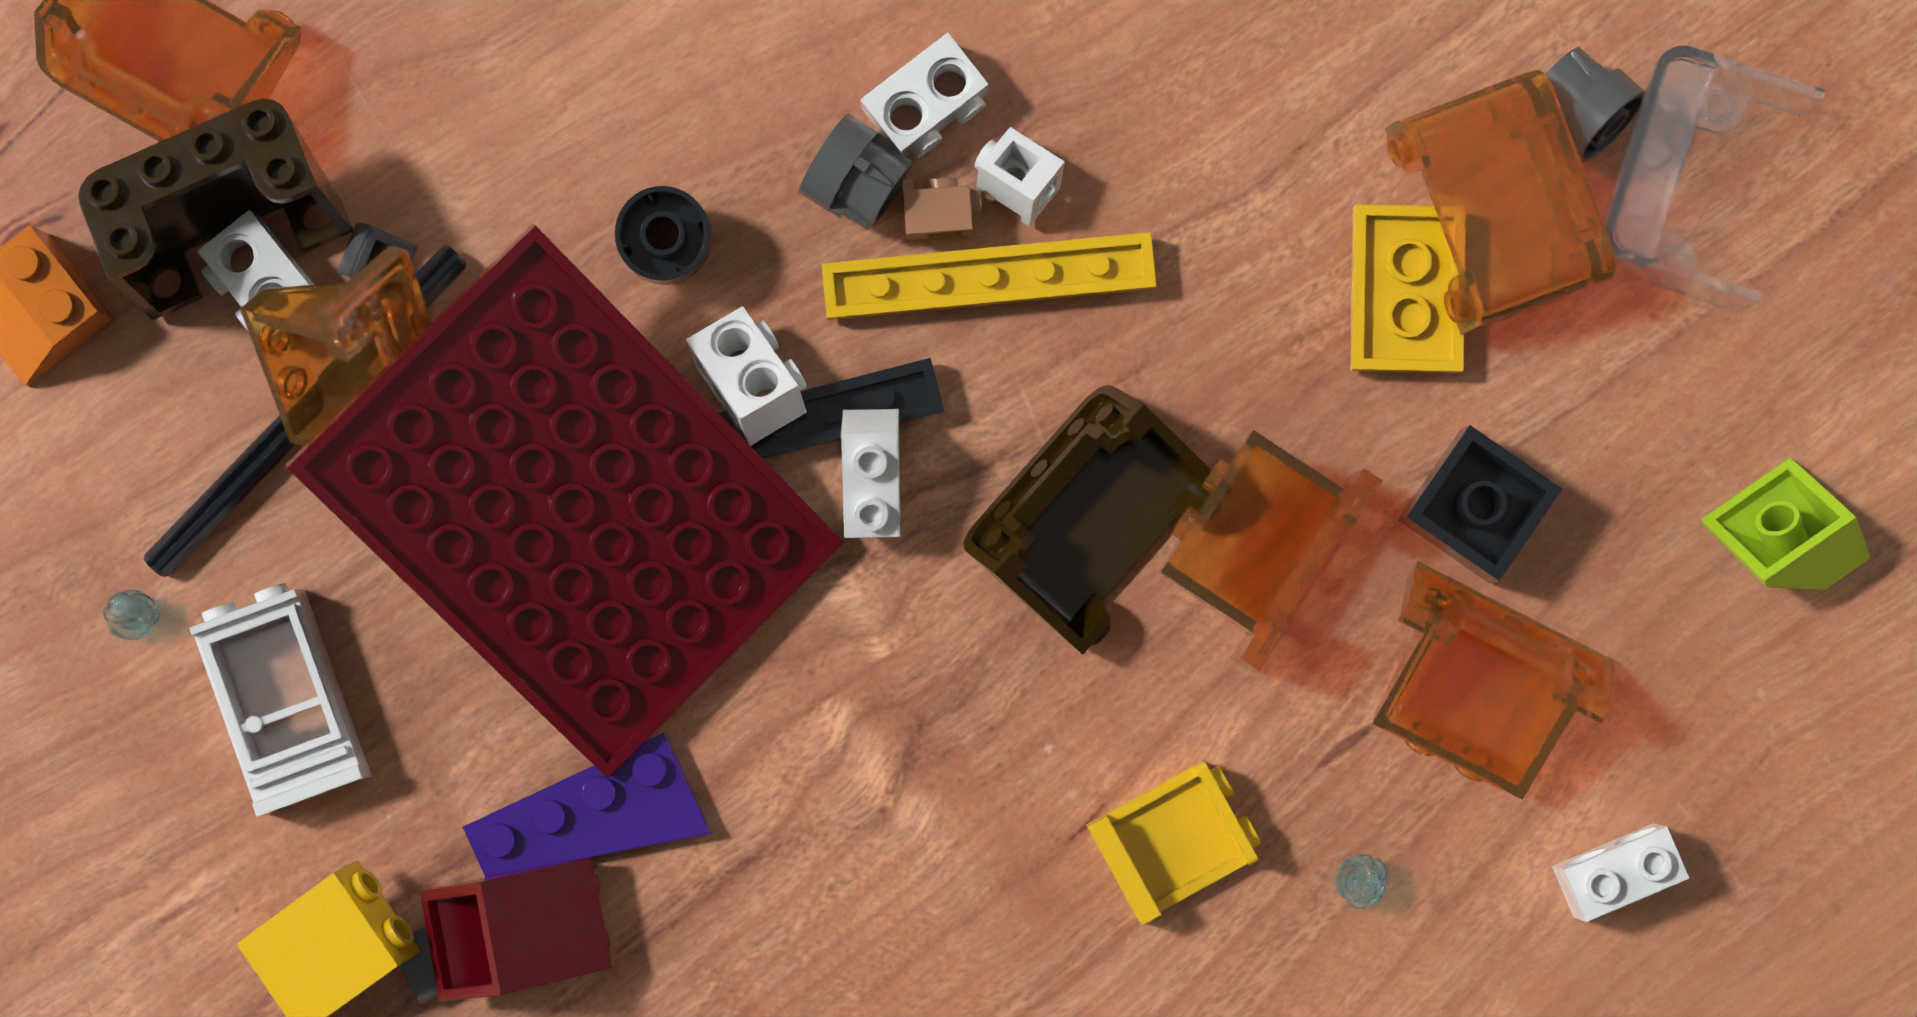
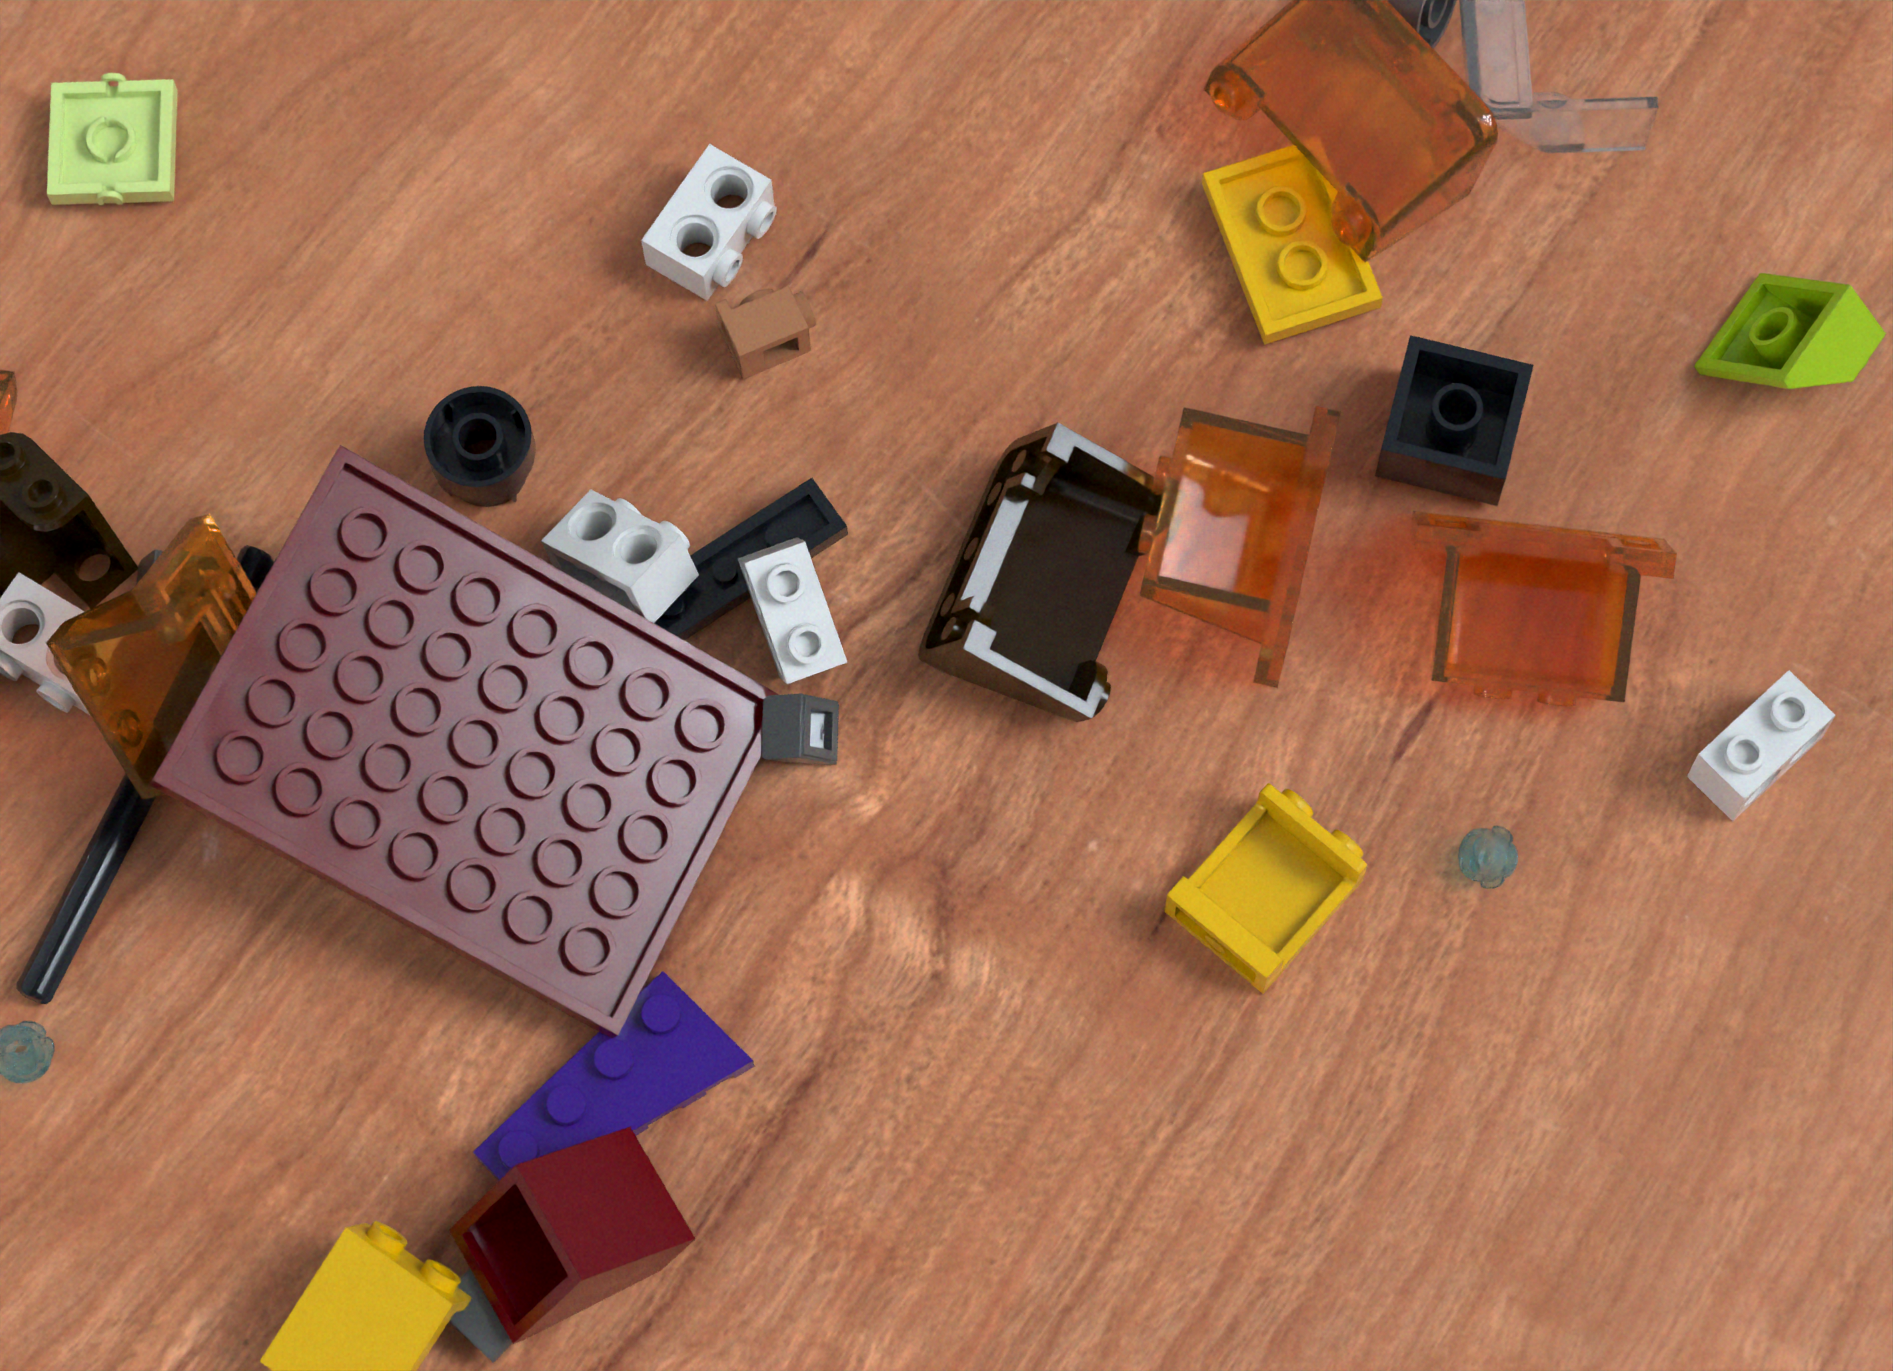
camera: 20 degrees left, 15 degrees down
(280, 698) = (219, 1082): white door -> none
(844, 571) = (800, 729): none -> dark grey slope
(855, 173) = (661, 316): dark grey piece -> none
(988, 276) = (842, 378): yellow plate -> none
(1019, 158) = (838, 263): white brick -> none

